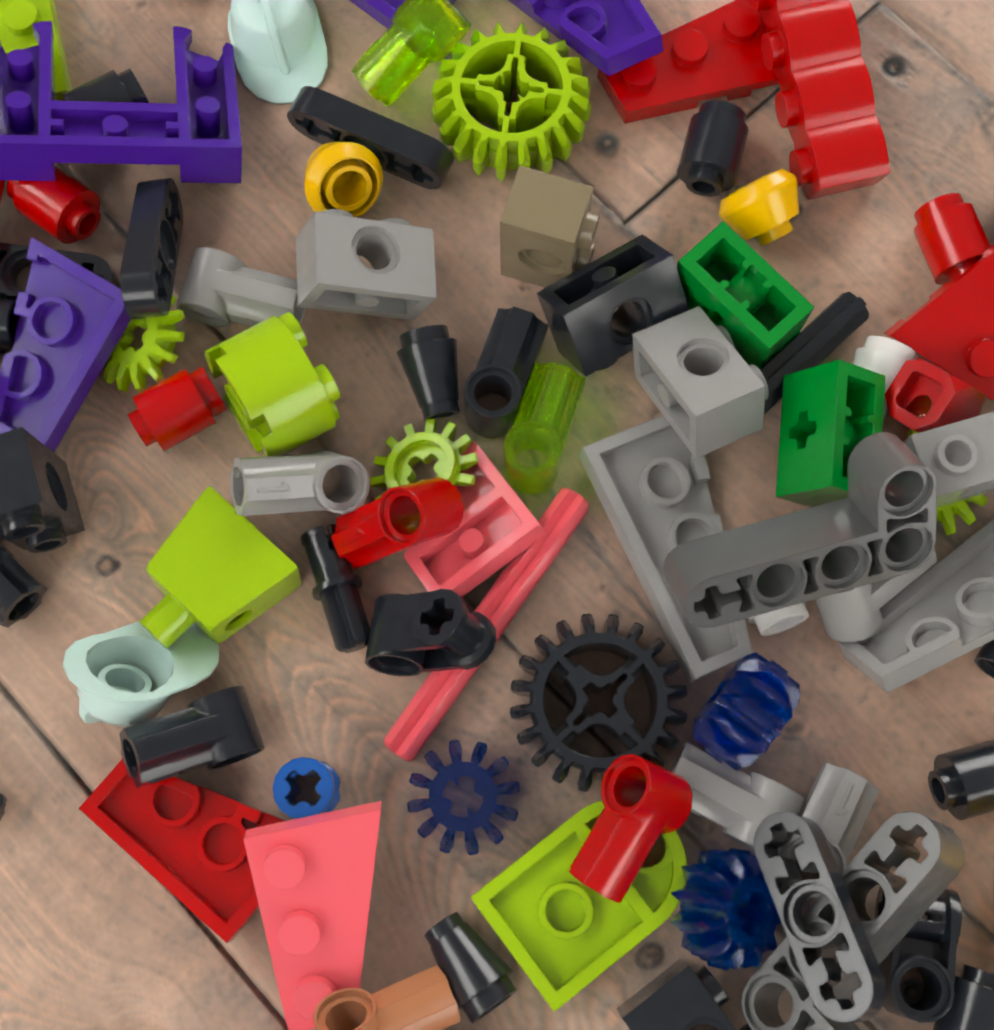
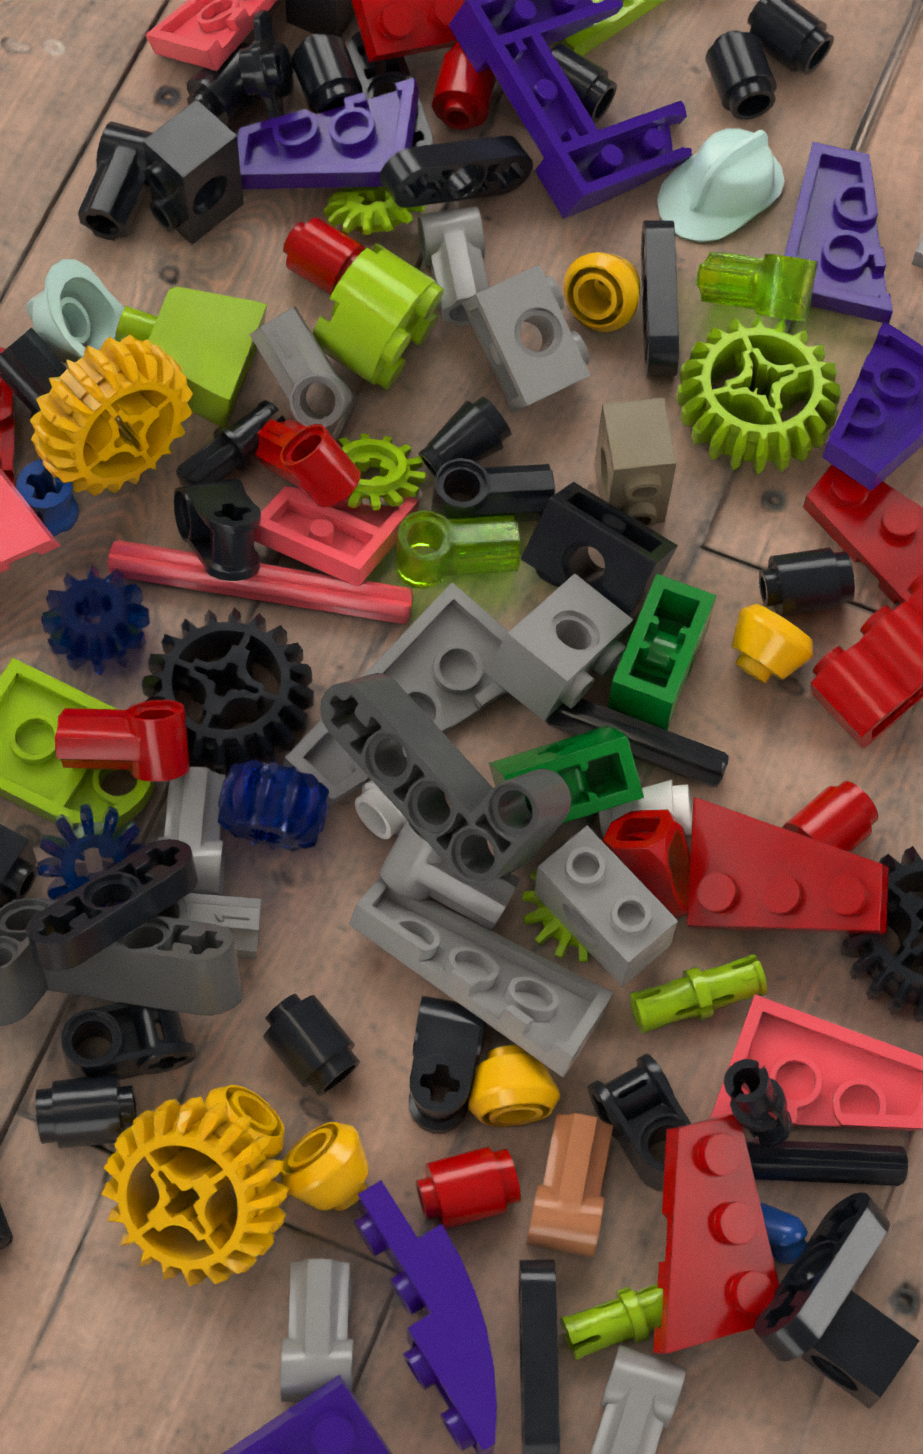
camera: 60 degrees right, 10 degrees down
(265, 690) = (111, 415): none -> yellow gear

